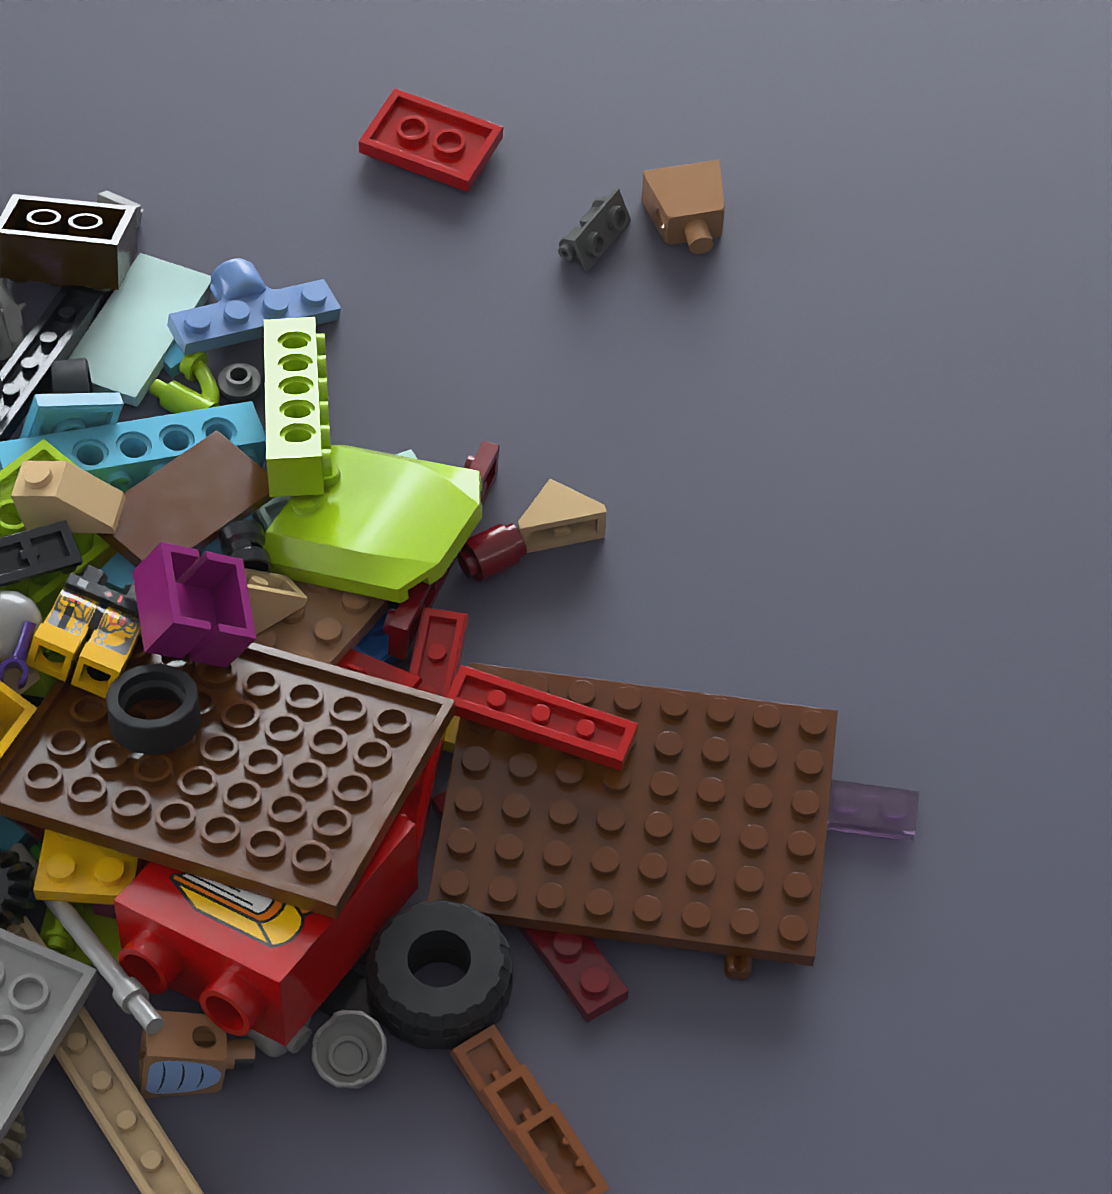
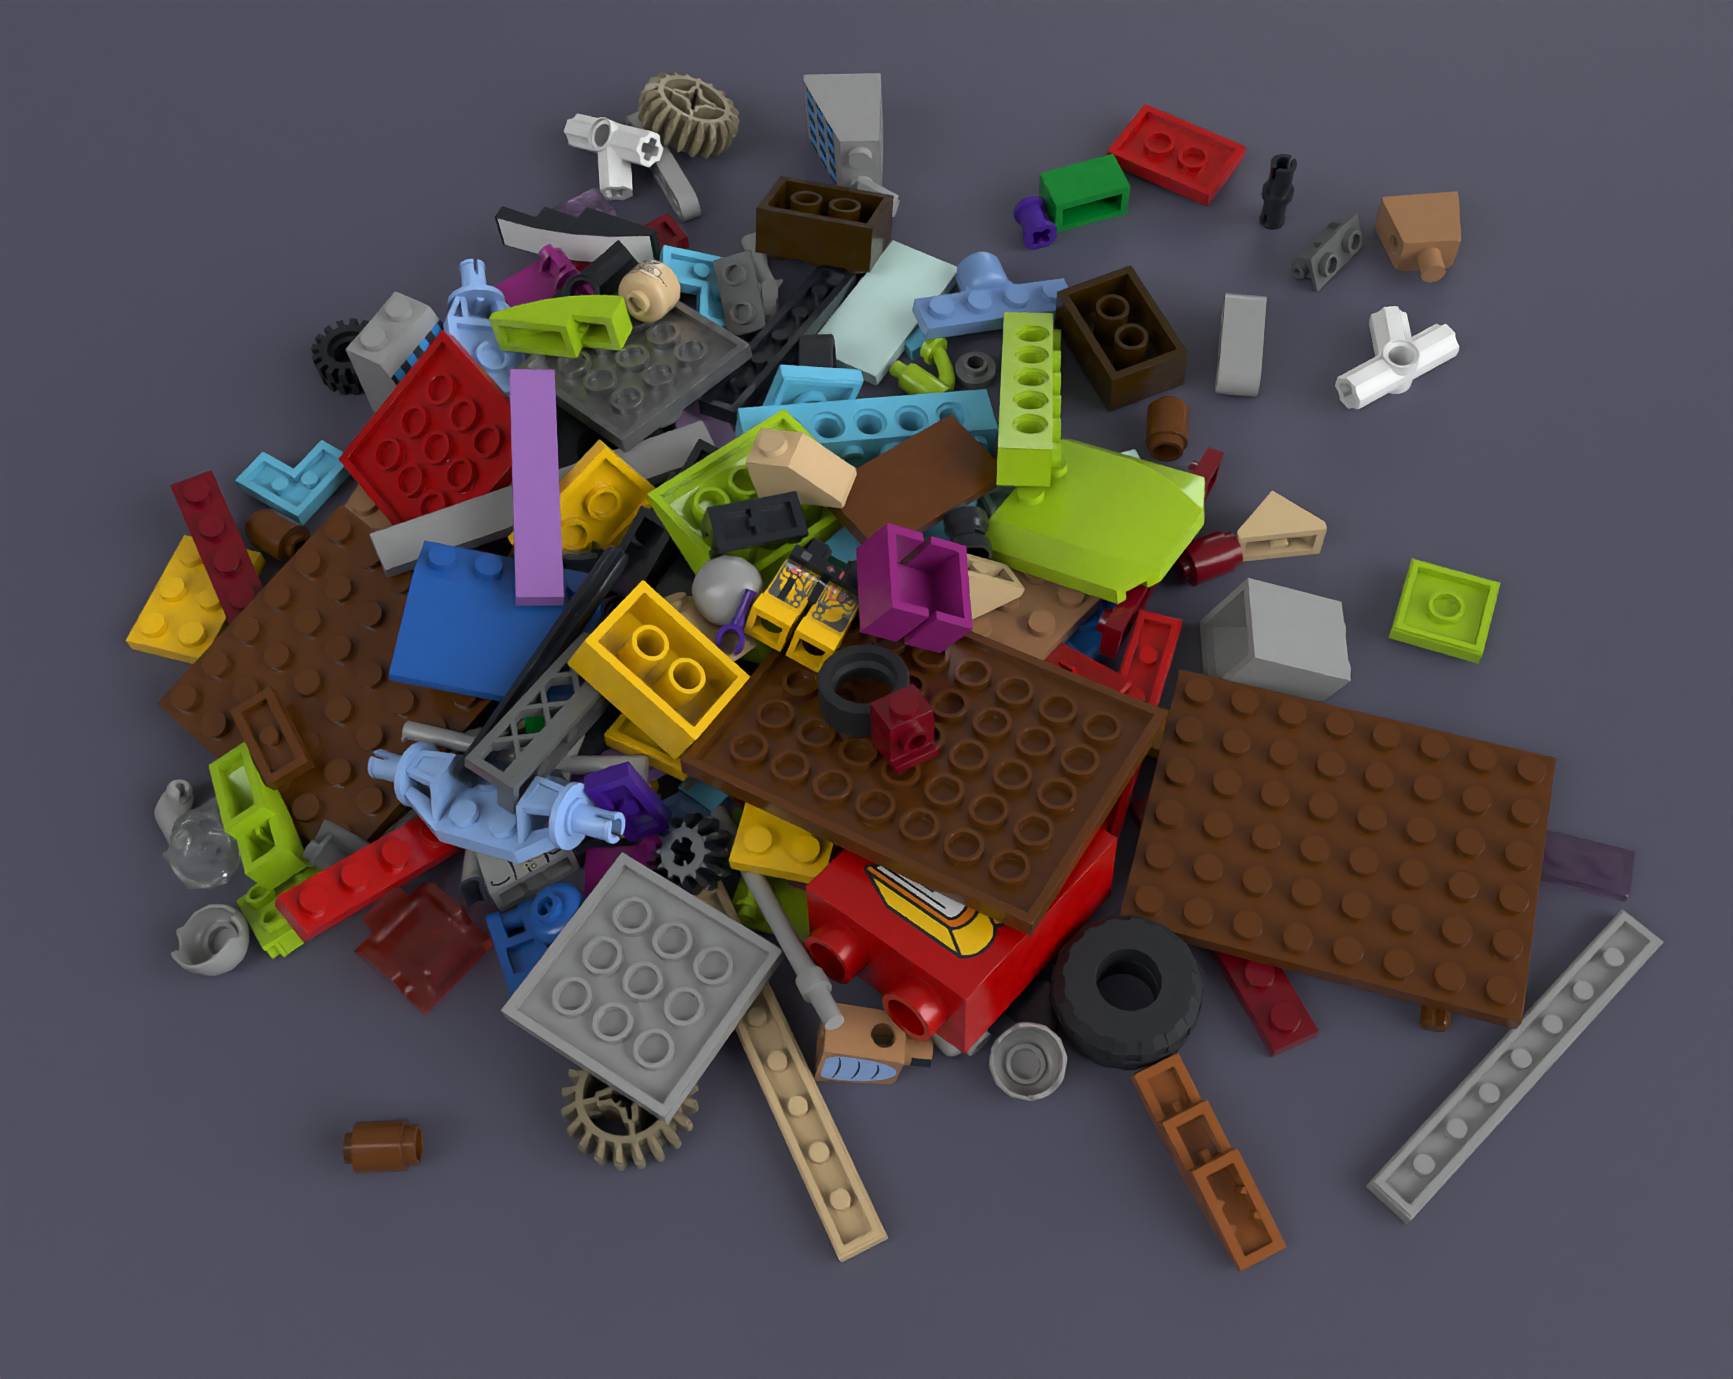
camera: 15 degrees right, 5 degrees up
(78, 135) = (846, 125): none -> light grey slope
(196, 740) = (903, 728): none -> dark red brick
(291, 228) = (1037, 228): none -> dark purple bush
(337, 188) = (1085, 192): none -> green piece
(386, 337) = (1120, 338): none -> dark brown brick
(442, 425) = (1167, 428): none -> reddish brown brick
(511, 334) = (1240, 345): none -> light grey beam
(537, 173) = (1278, 191): none -> black pin
(542, 717) = (1253, 736): red plate -> none
(565, 625) = (1277, 641): none -> light grey slope
(669, 337) = (1397, 358): none -> white piece
(728, 581) = (1445, 610): none -> lime plate
(814, 1002) = (1513, 1067): none -> light grey tile

